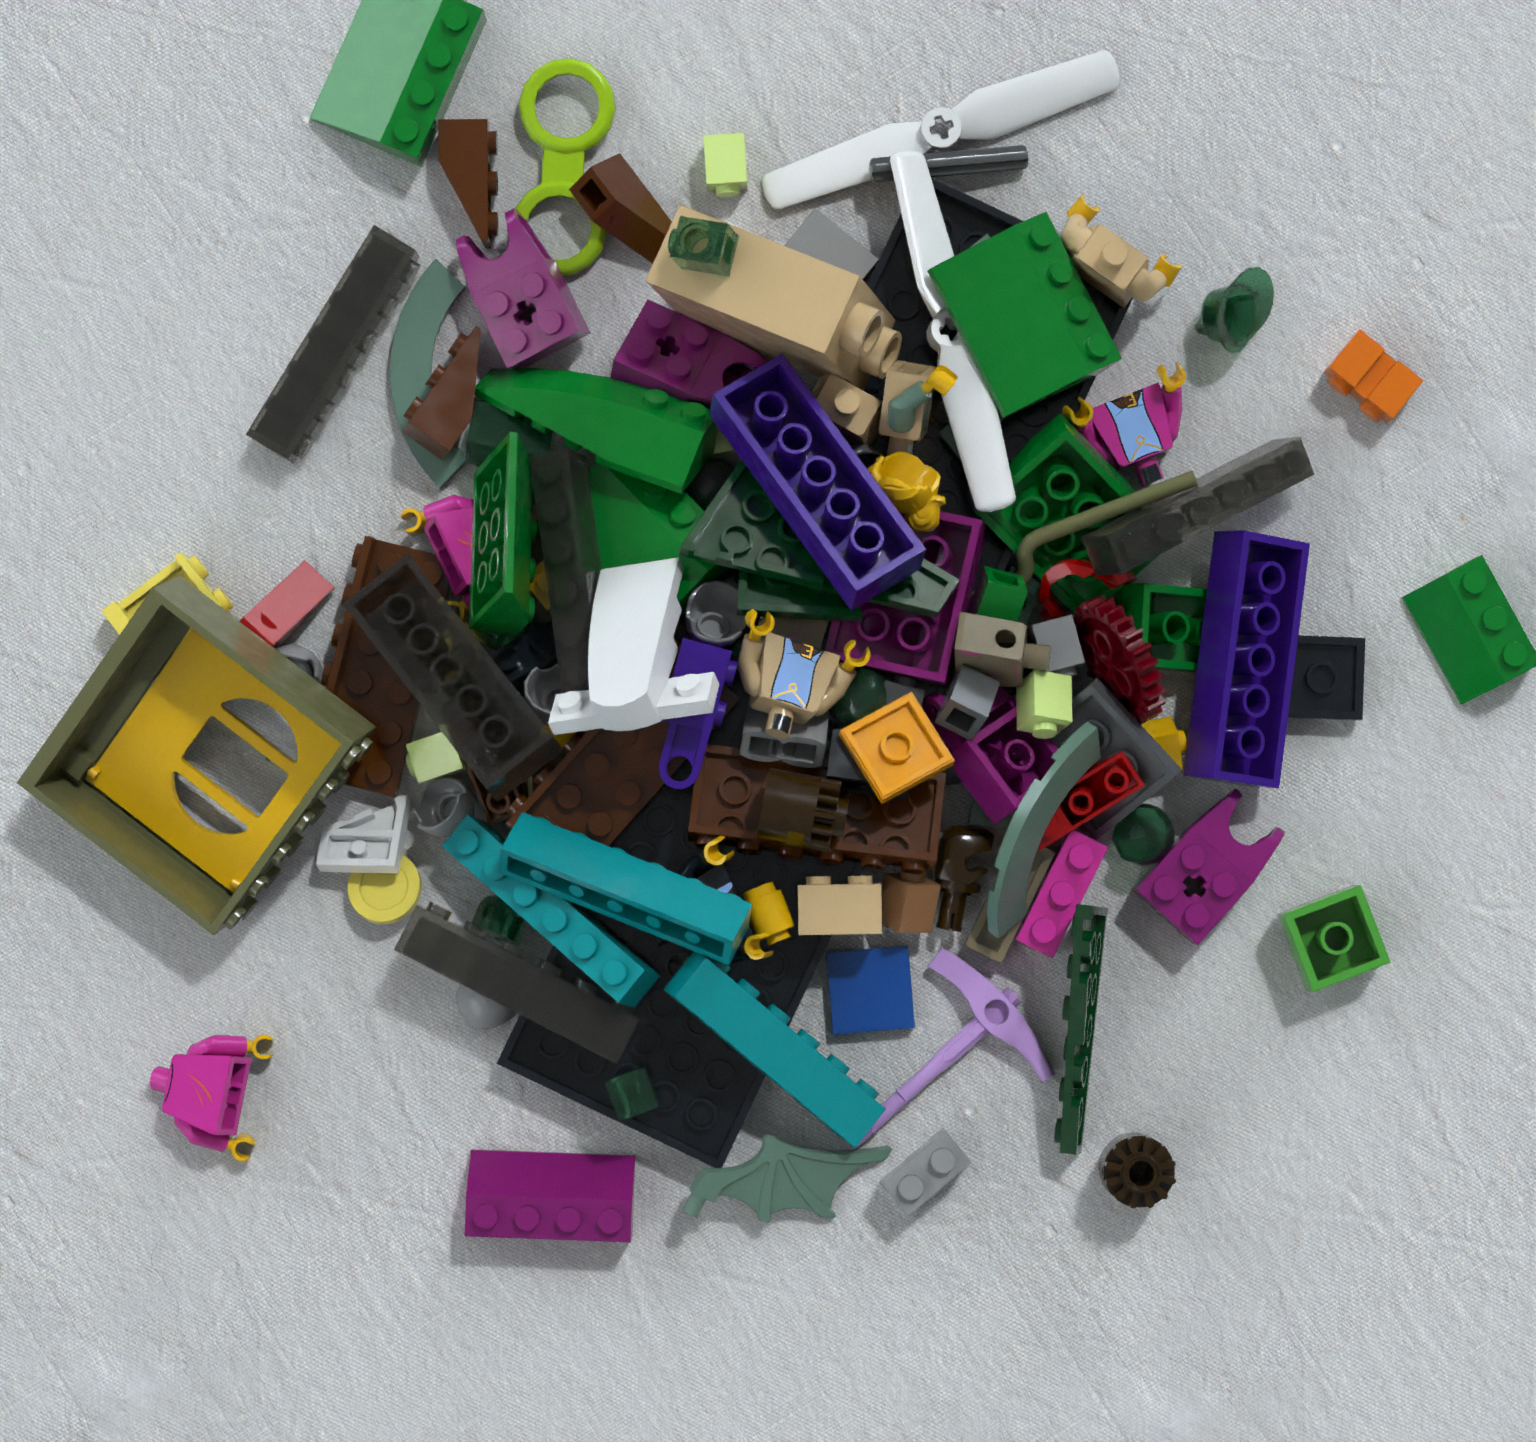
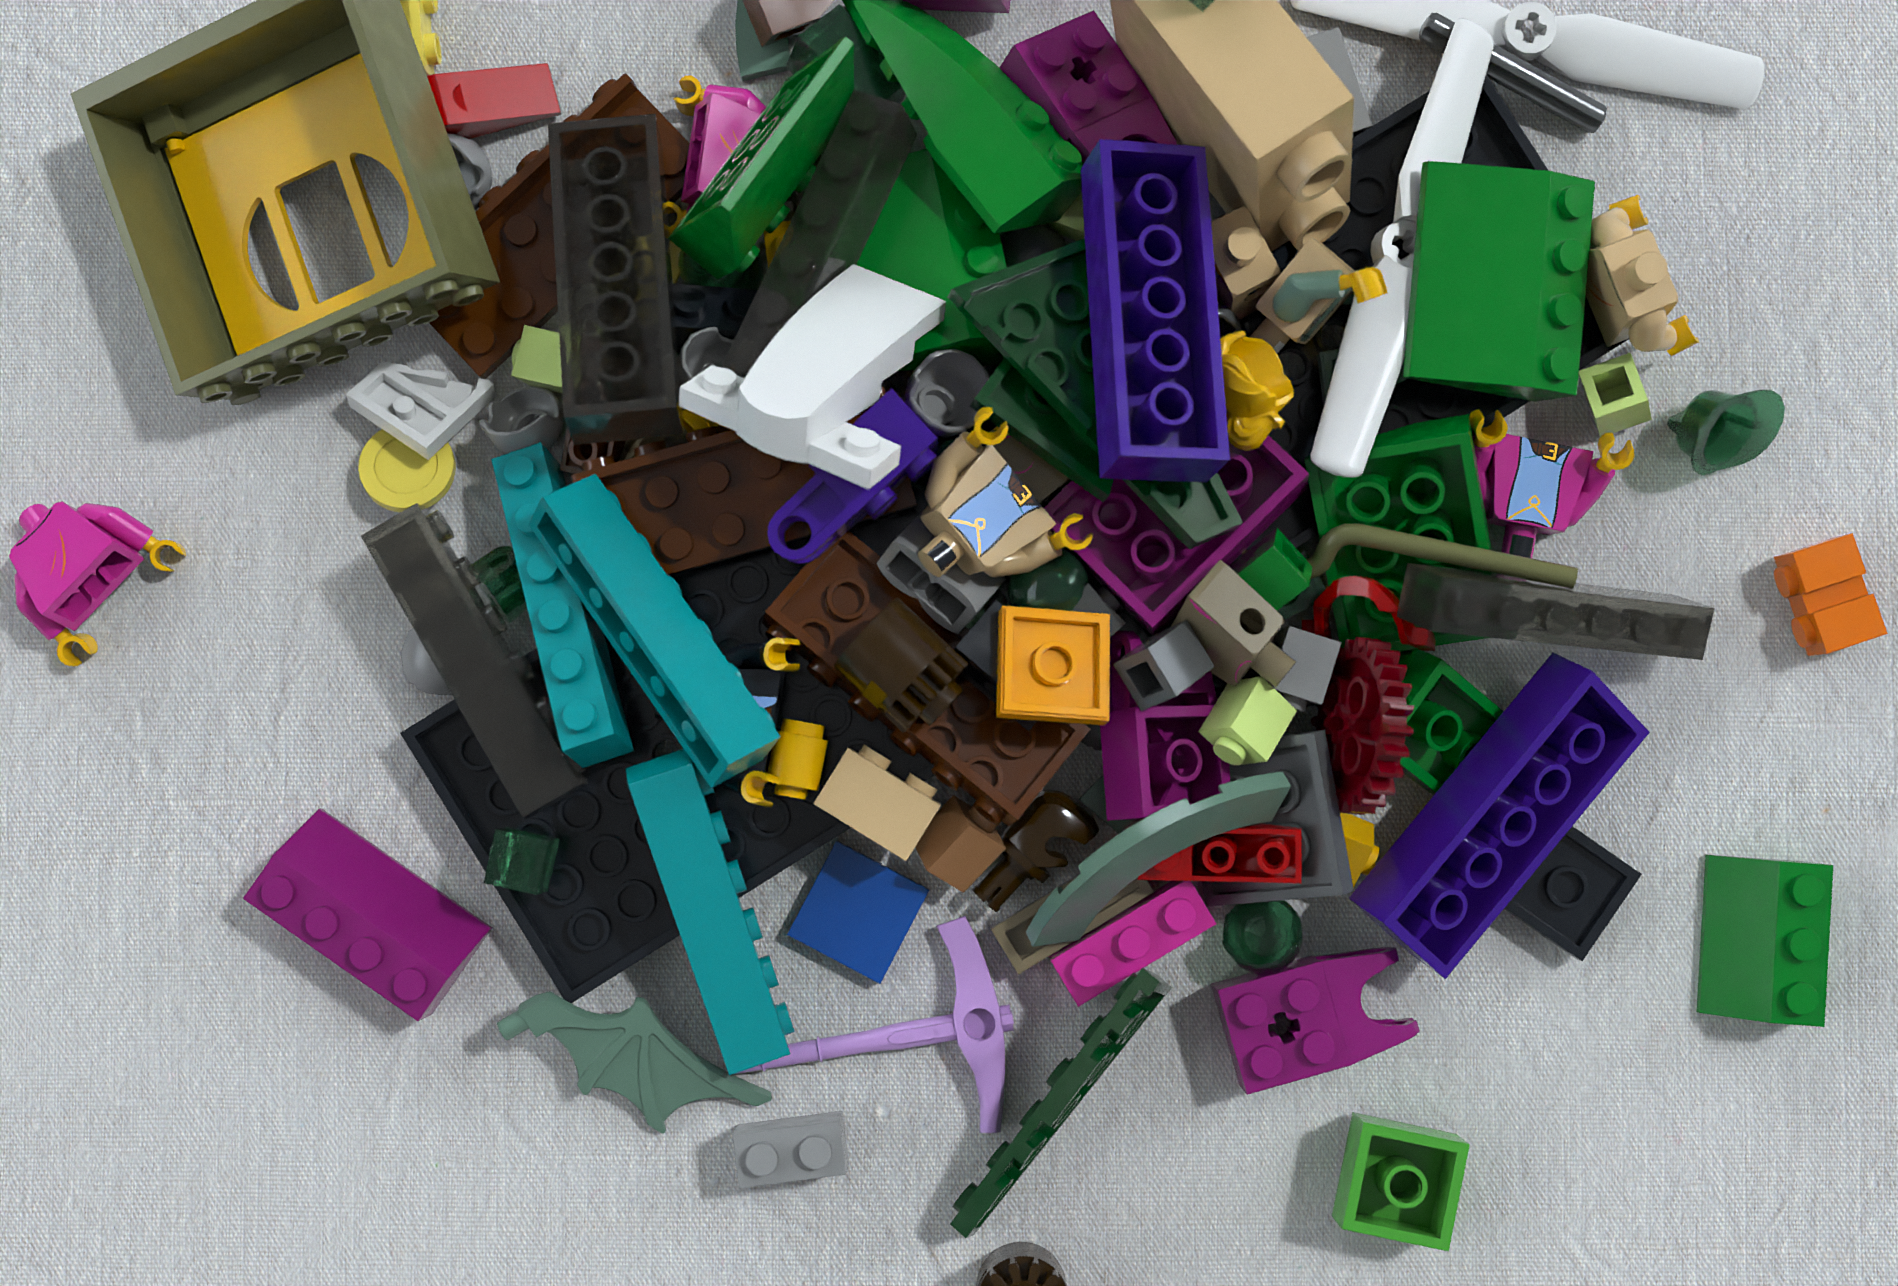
camera: 35 degrees right, 0 degrees up
(1149, 335) = (1615, 394): none -> yellowish green brick

